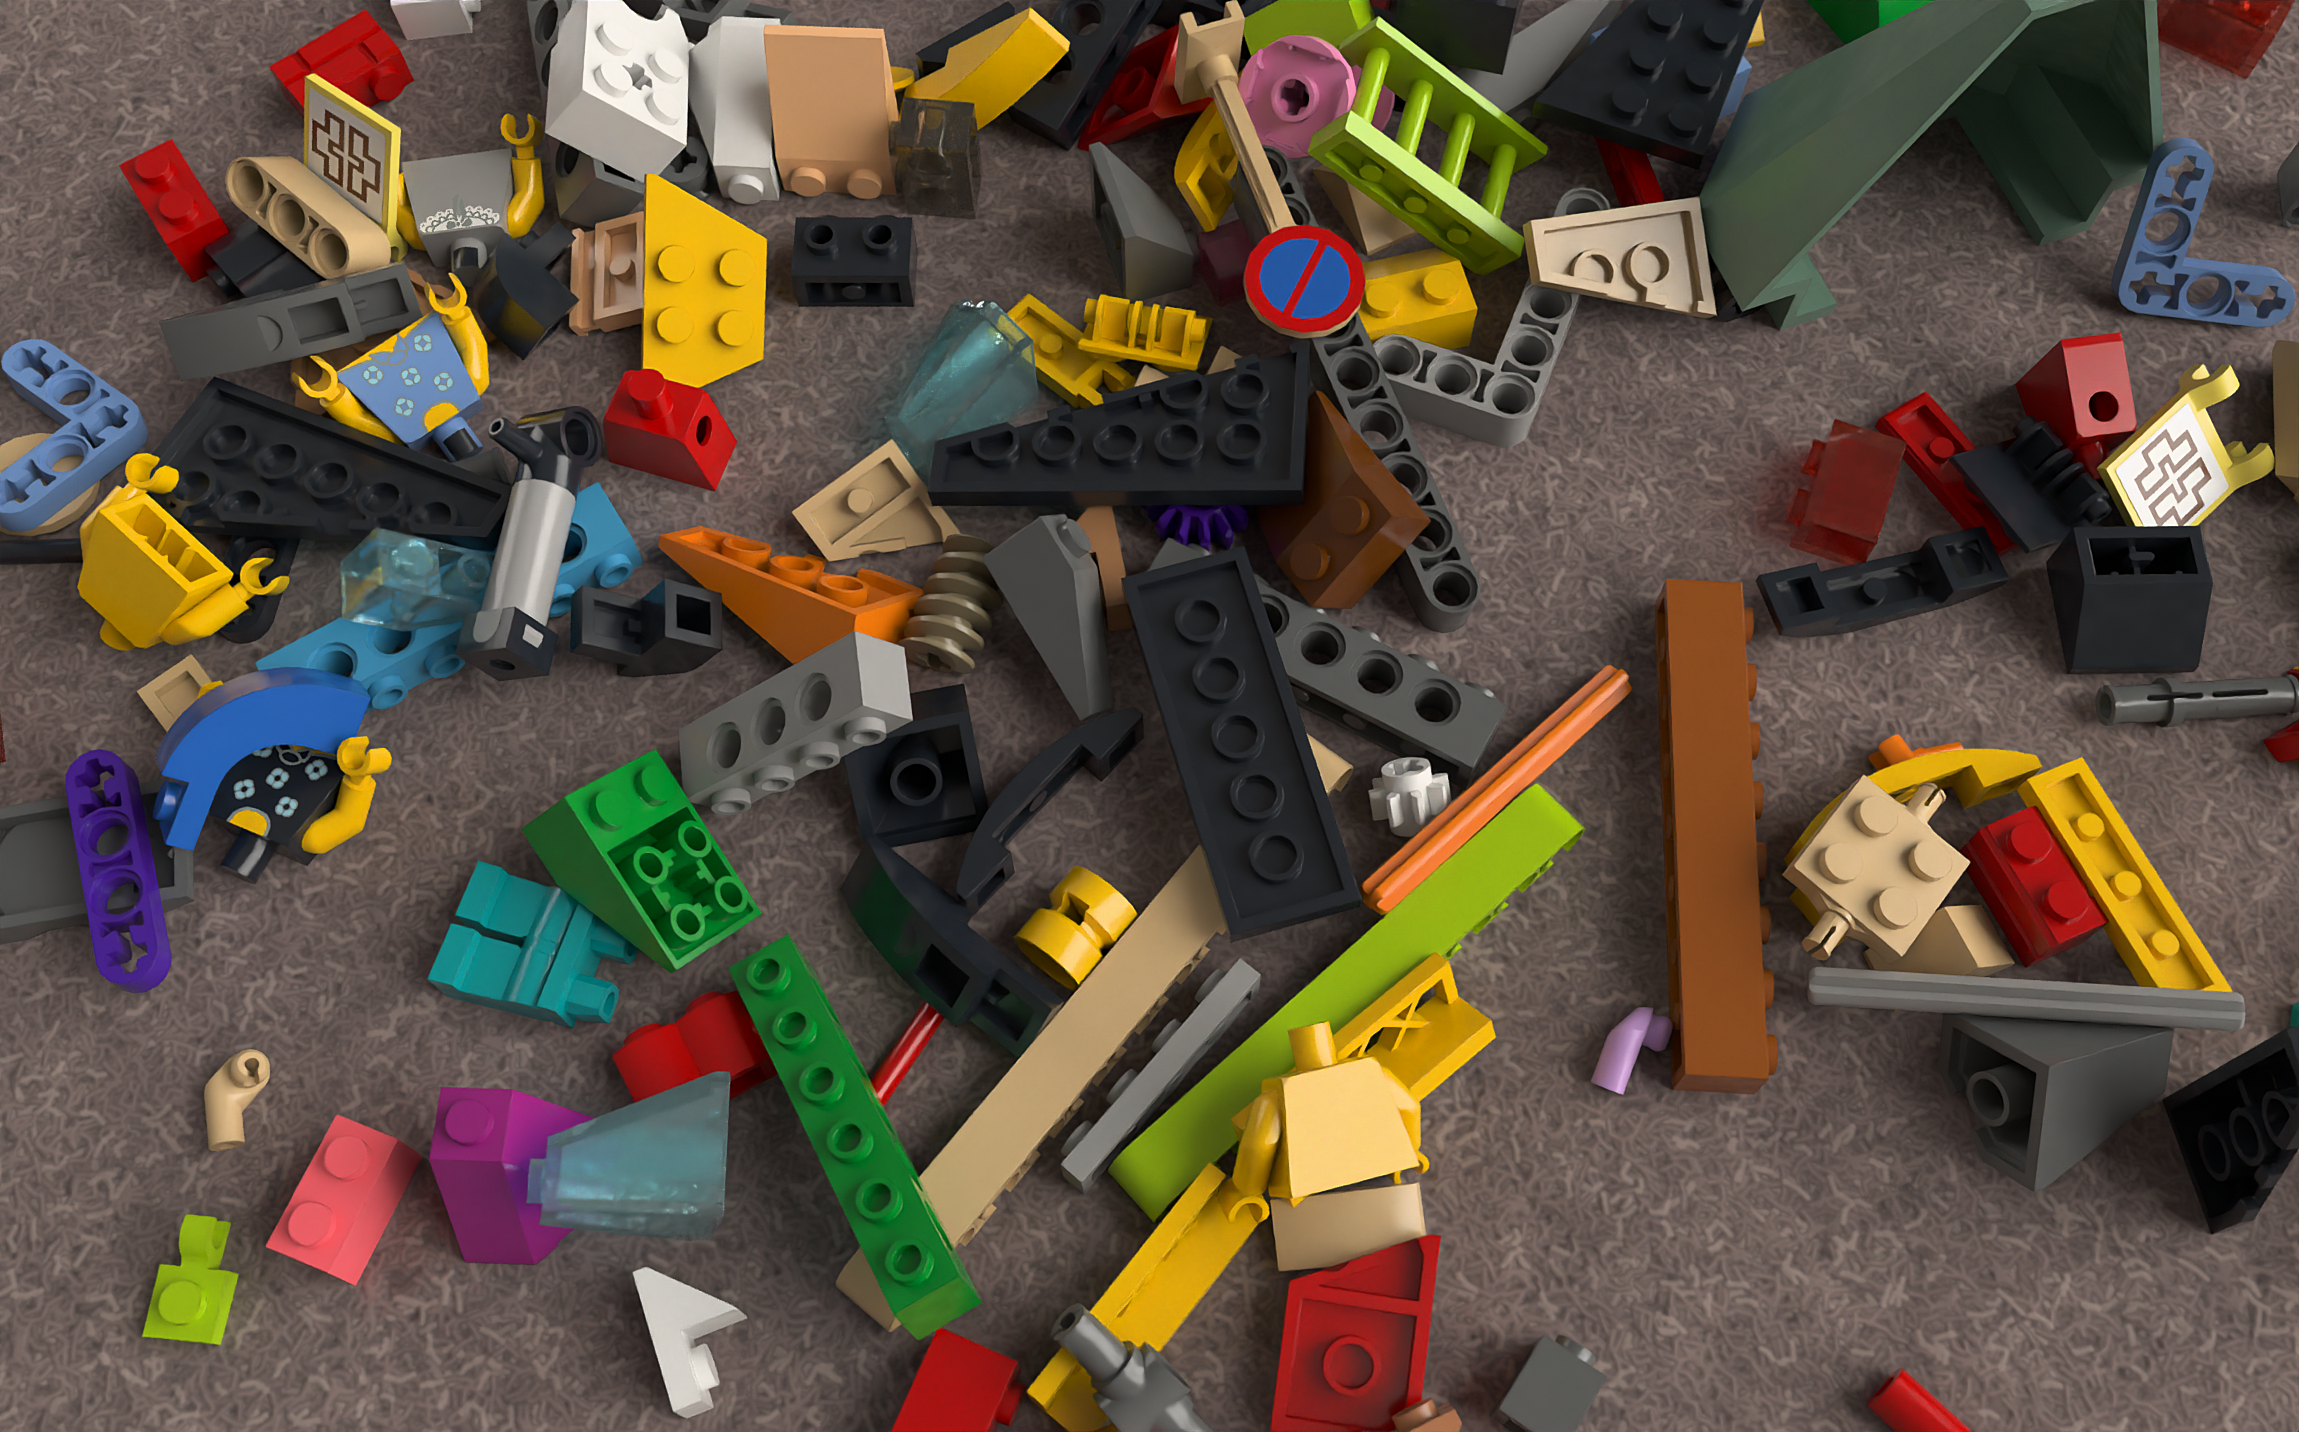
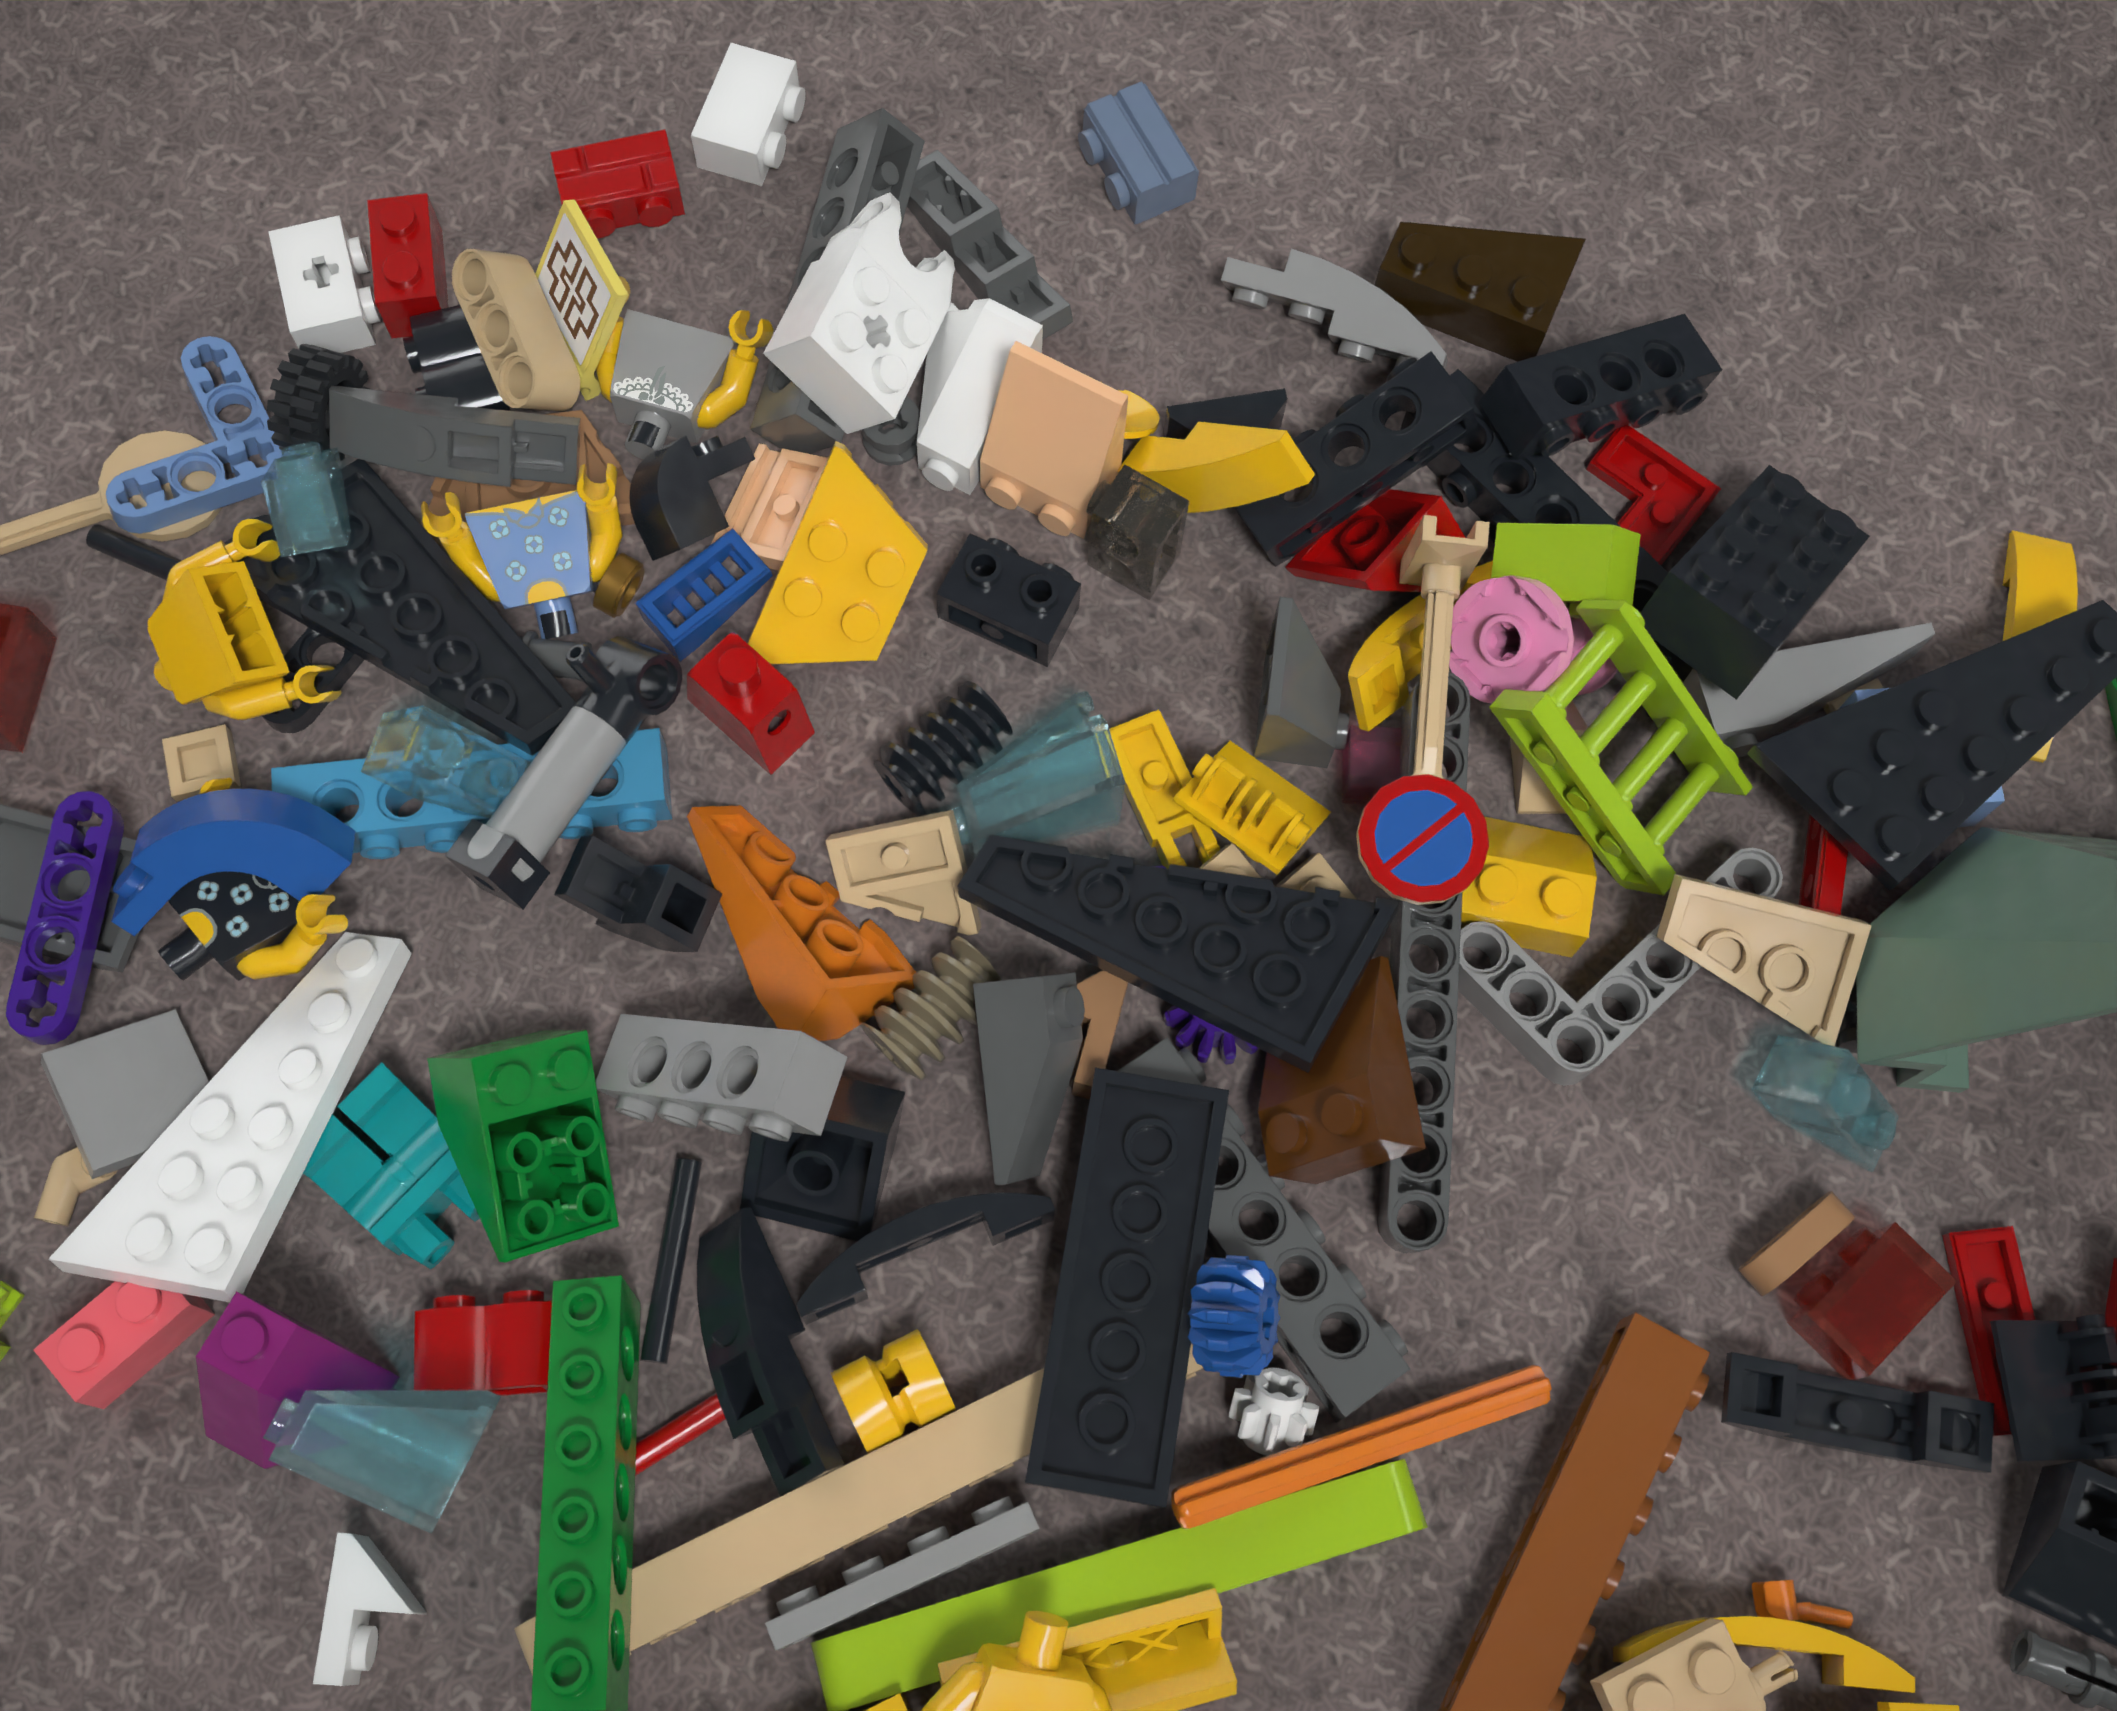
camera: 20 degrees right, 5 degrees up
(110, 260) = (323, 285): none -> white brick
(142, 352) = (303, 394): none -> black tyre
(183, 419) = (307, 499): none -> clear light blue slope
(254, 995) = (124, 1088): none -> light grey tile
(379, 1002) = (225, 1169): none -> white wing
(502, 390) = (619, 585): none -> pearl gold tile
(599, 375) = (717, 609): none -> blue slope
(824, 920) = (671, 1261): none -> black bar
(857, 396) = (942, 746): none -> black piece
(1340, 720) = (1234, 1316): none -> blue gear
(1730, 356) = (1827, 1099): none -> clear light blue slope
(1765, 478) = (1796, 1243): none -> medium nougat beam

